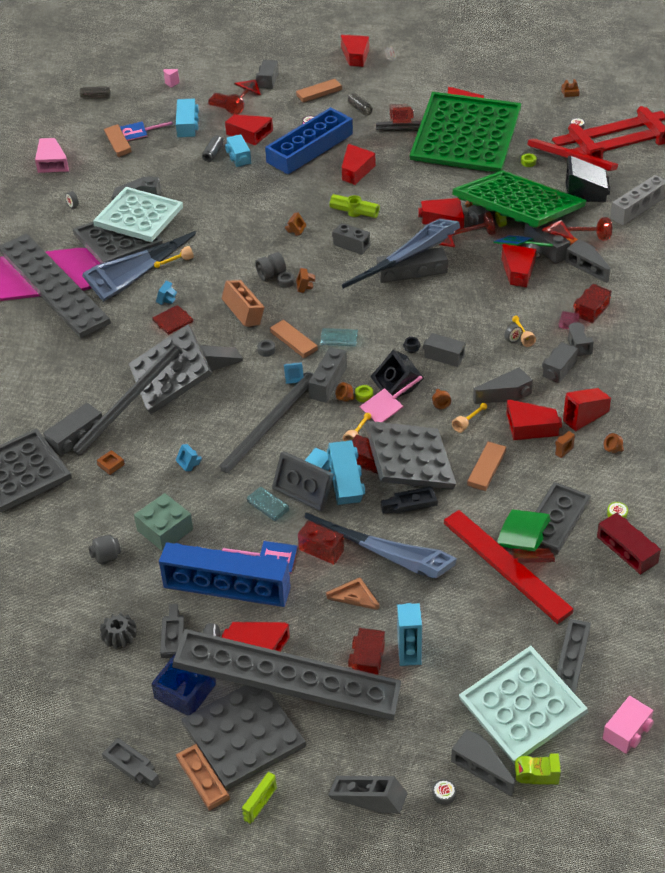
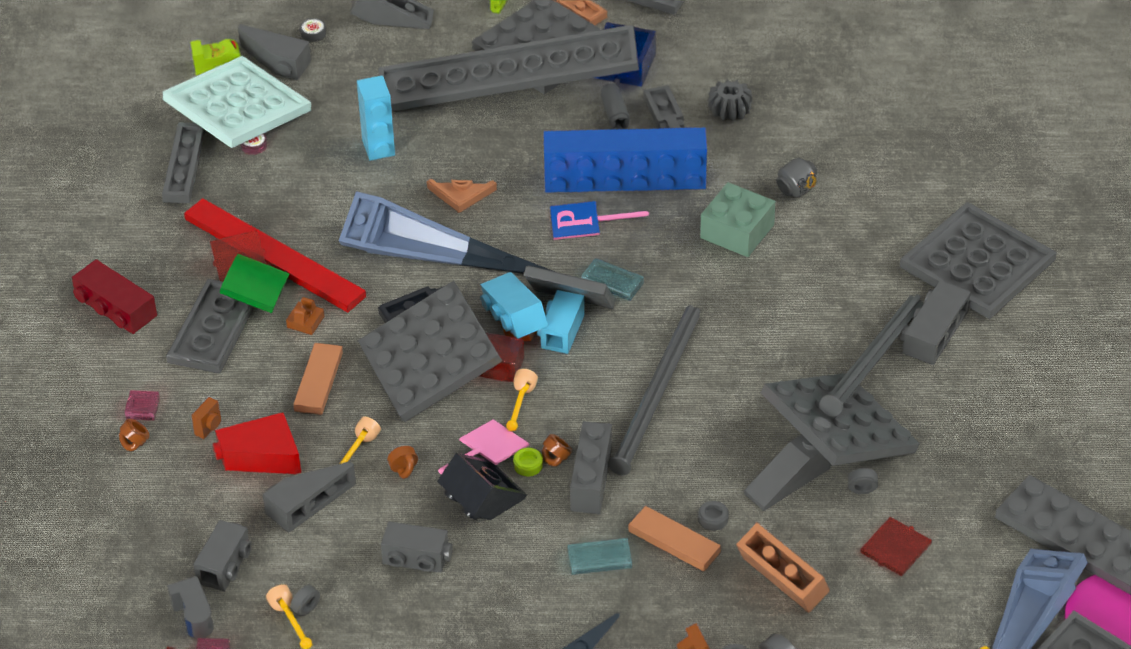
camera: 165 degrees right, 0 degrees up
(110, 462) = (856, 289): dark orange plate -> none
(166, 294) = (928, 577): dark azure tile -> none
(187, 457) = (747, 308): dark azure tile -> none
(262, 634) = (562, 113): red slope -> none
(293, 372) = (654, 463): dark azure tile -> none
(321, 542) = (520, 229): clear red brick -> none
(368, 651) = (425, 125): clear red brick -> none
(411, 344) = (473, 554): black plate -> none
(490, 510) = (305, 316): none -> dark orange tile
(585, 407) = (176, 470): red slope -> none
(608, 467) = (142, 405): none -> clear pink tile
(617, 507) = (129, 344): tile -> none
(628, 724) = (118, 100): bright pink piece -> none

